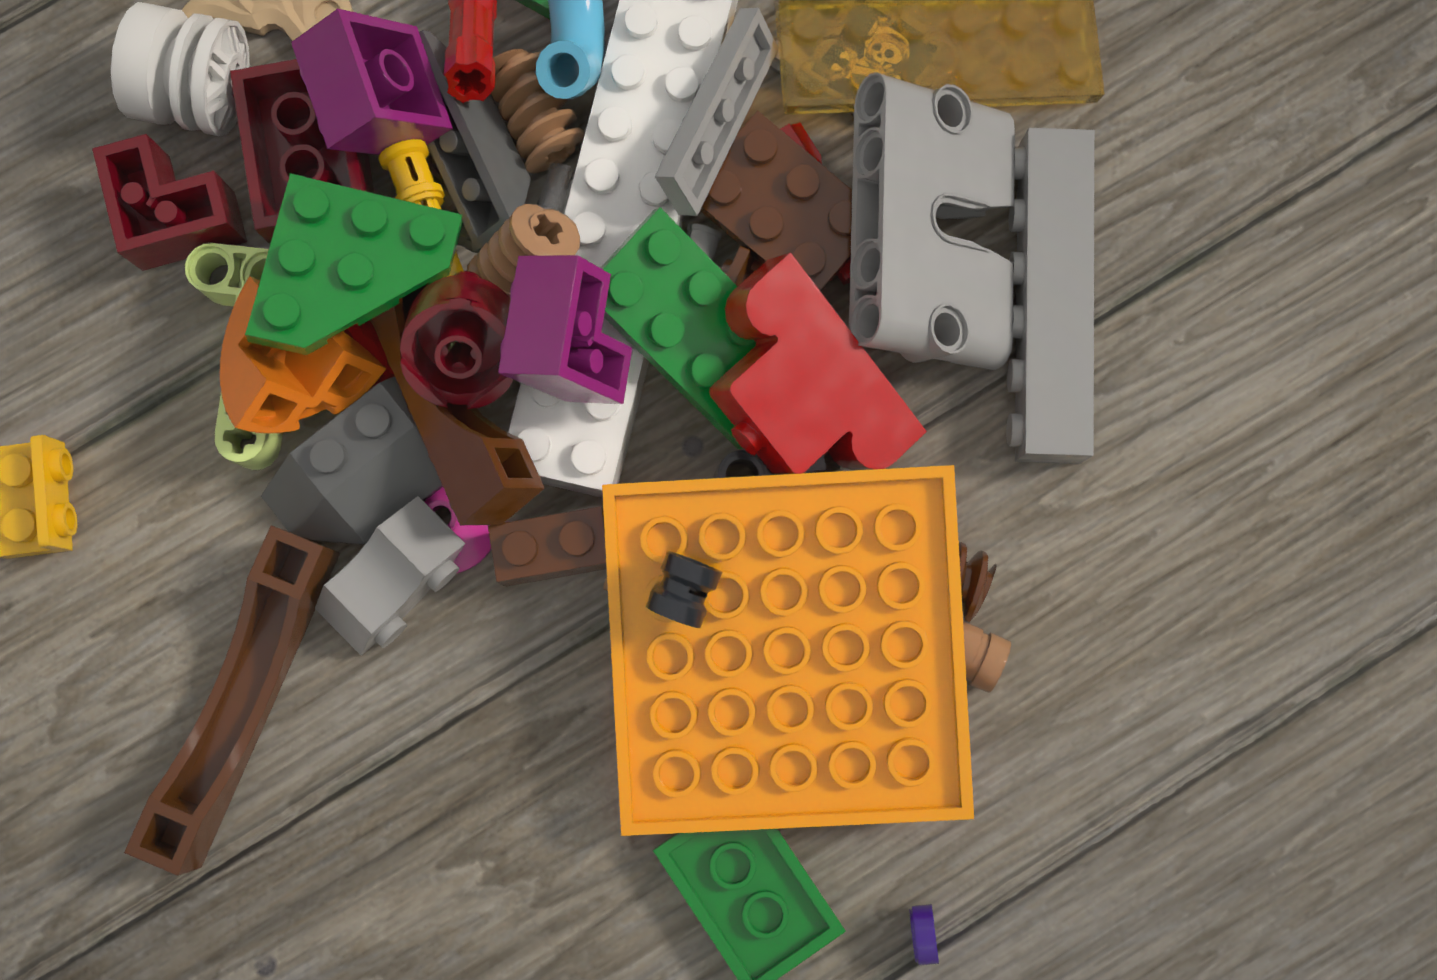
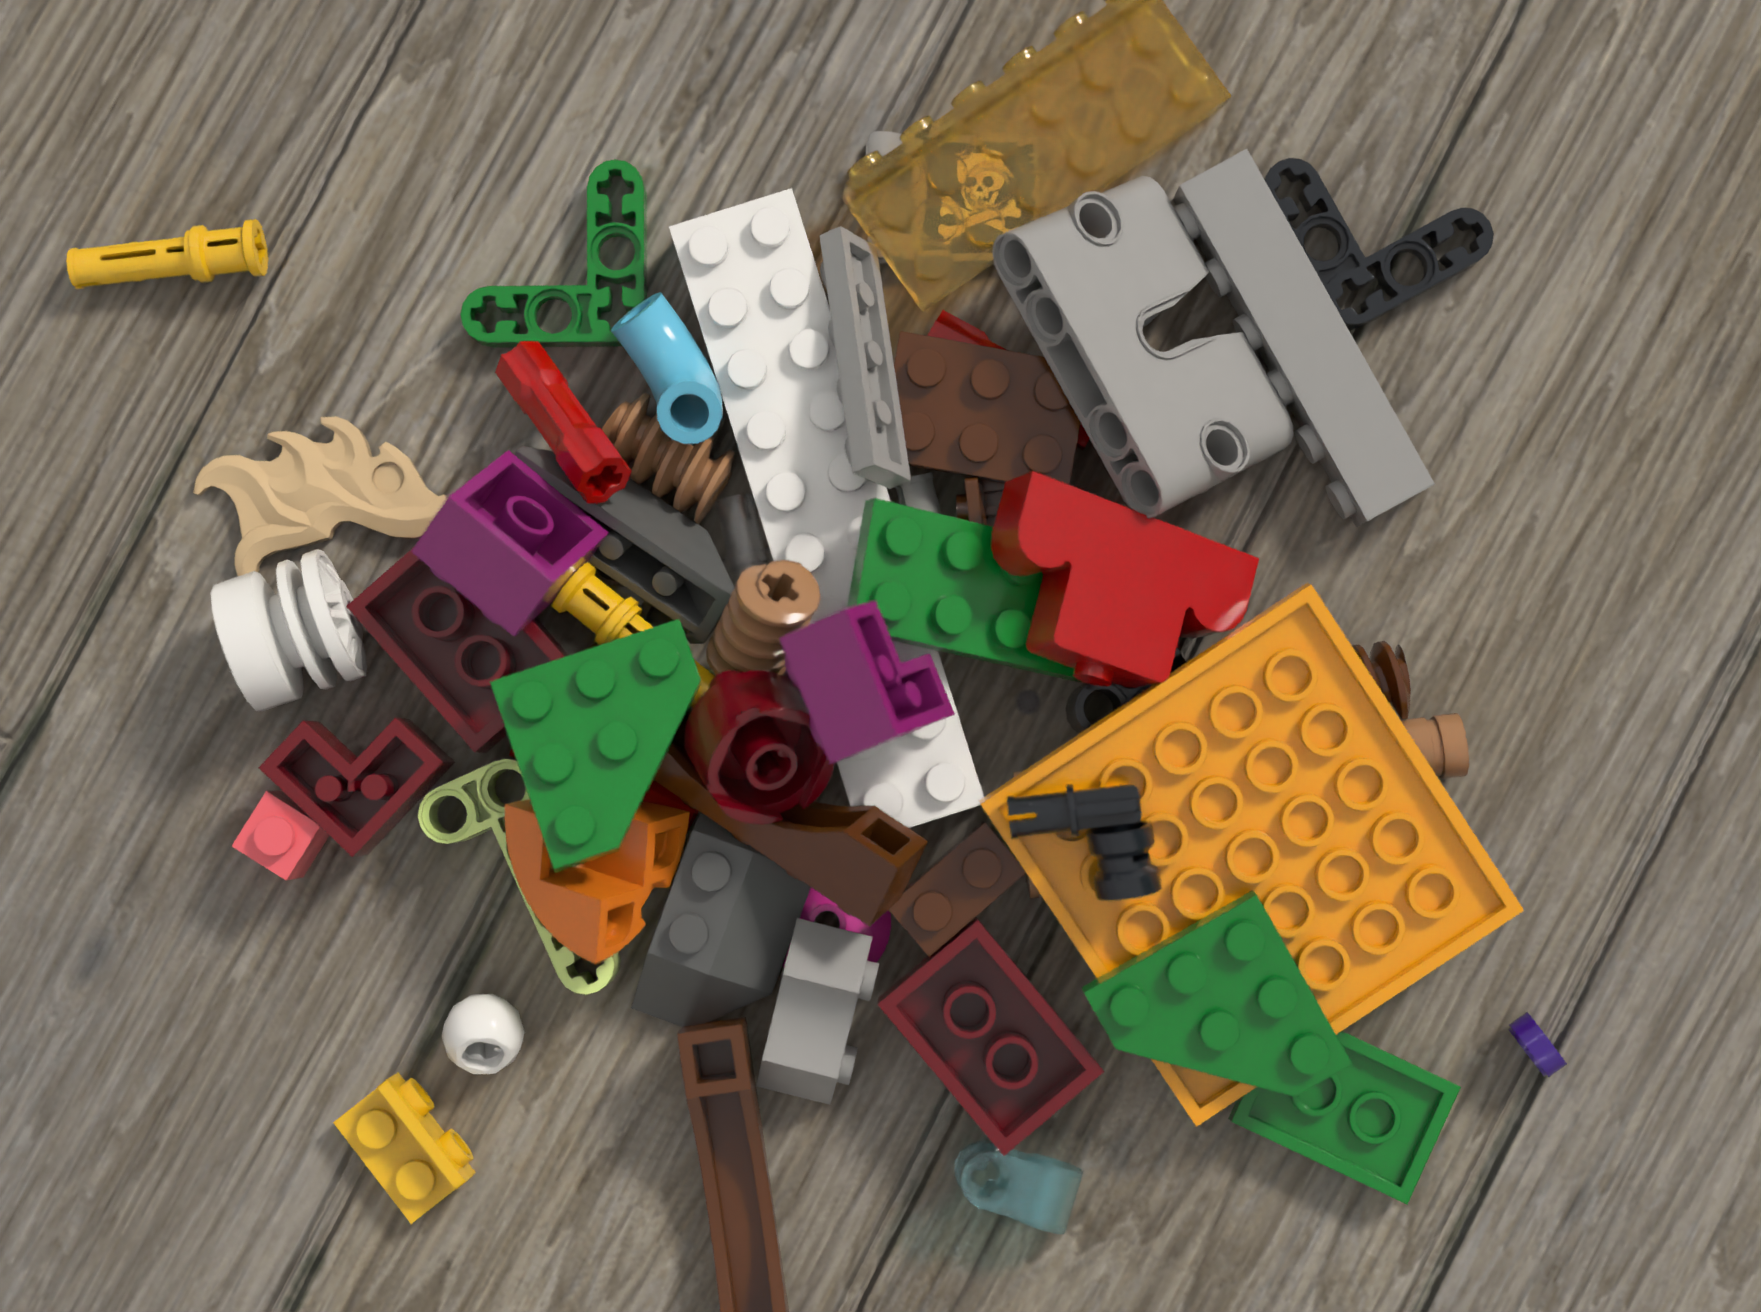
camera: 25 degrees left, 5 degrees up
(80, 216) = (281, 836): none -> coral brick
(136, 446) = (483, 1034): none -> white piece
(471, 812) = (1029, 1188): none -> clear light blue piece
(507, 670) = (989, 1036): none -> dark red brick
(669, 528) = (1075, 810): none -> black axle
(695, 750) = (1222, 1004): none -> green plate
(1123, 269) = (1350, 264): none -> black beam

